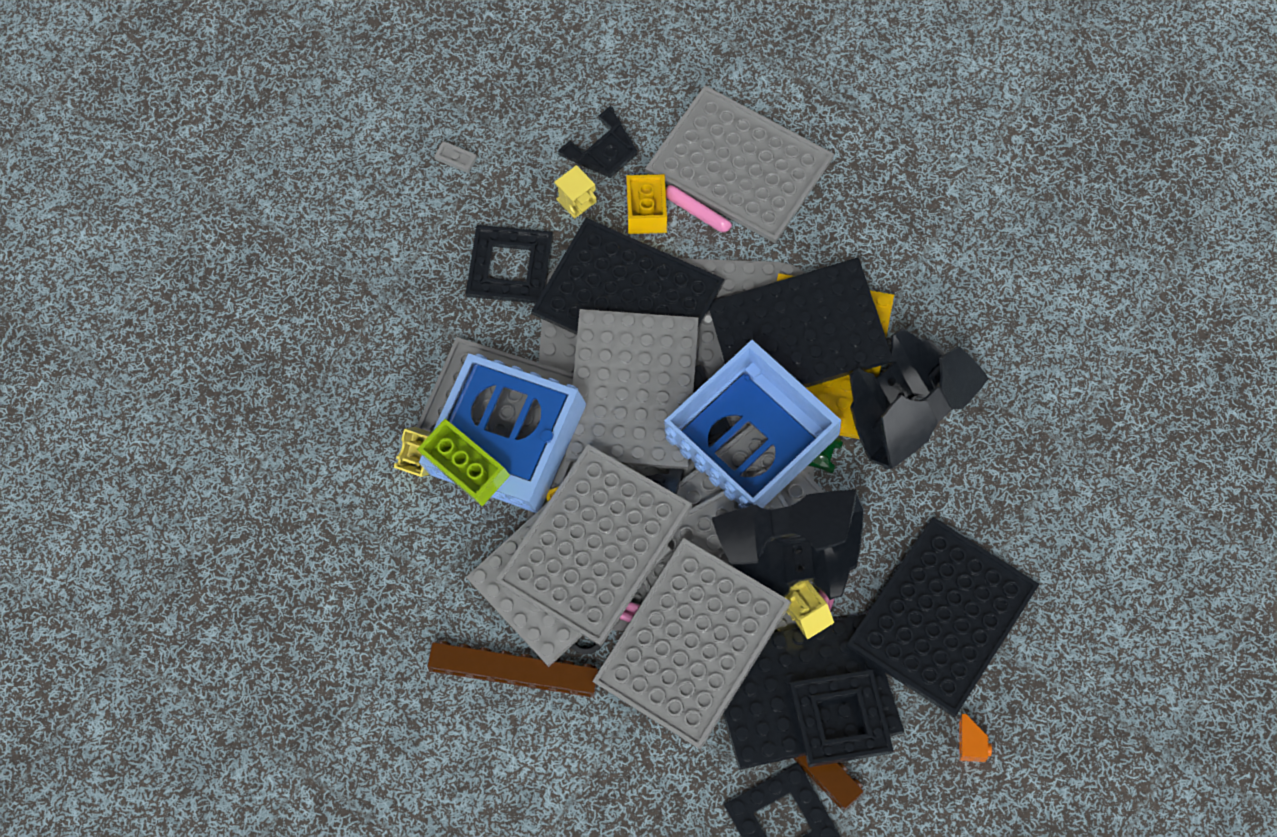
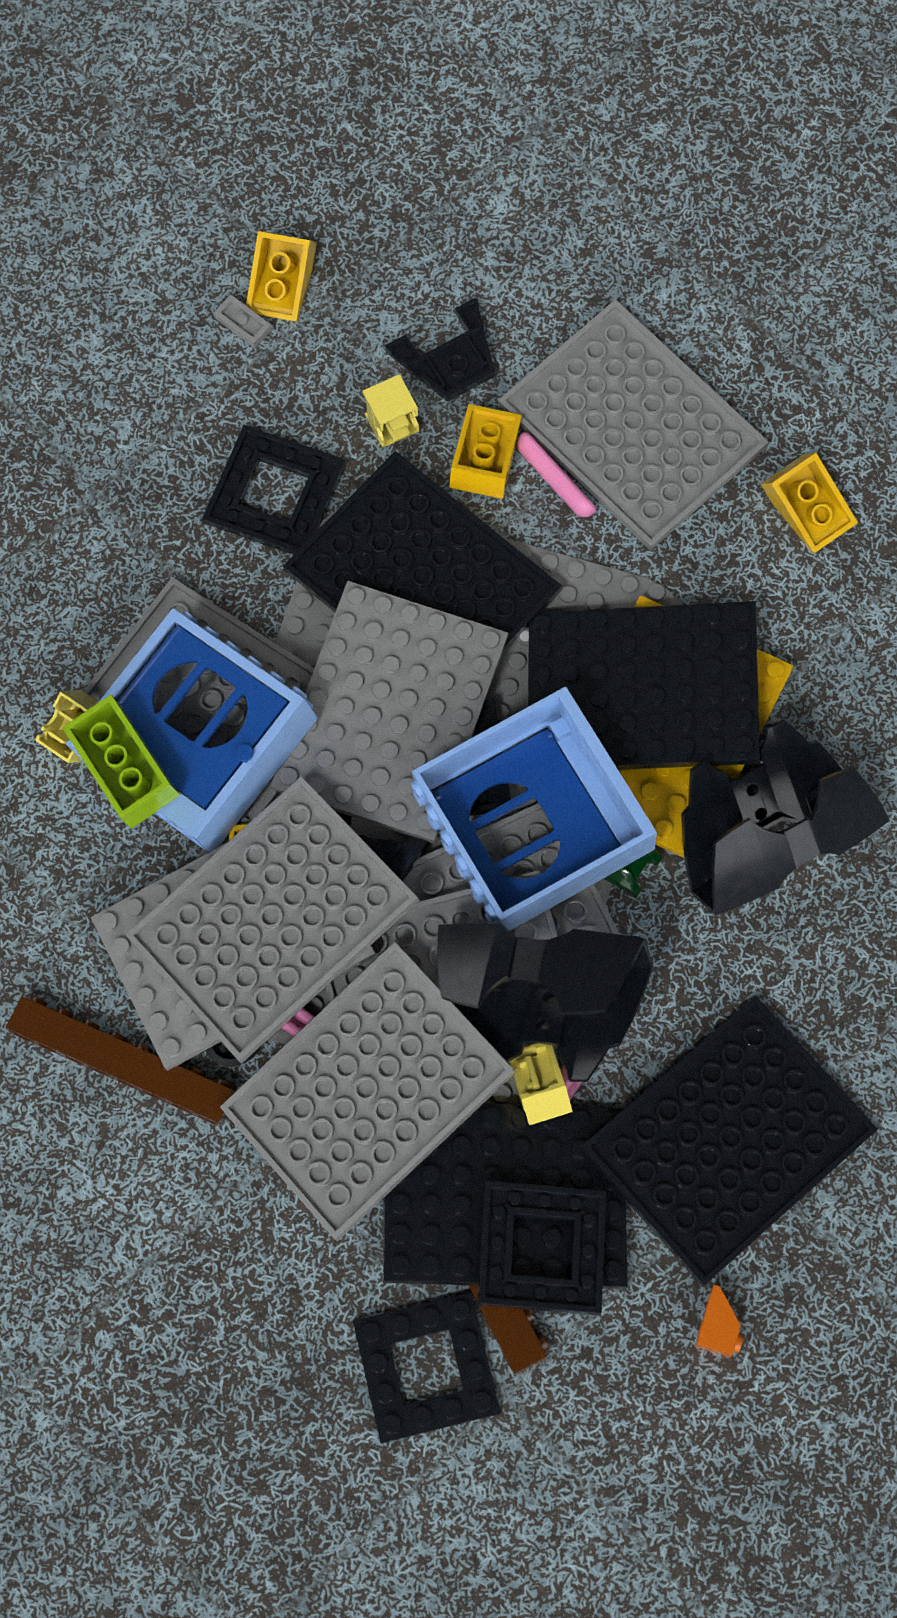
camera: 15 degrees right, 5 degrees up
(473, 120) = (280, 275): none -> yellow slope
(872, 186) = (810, 501): none -> yellow slope

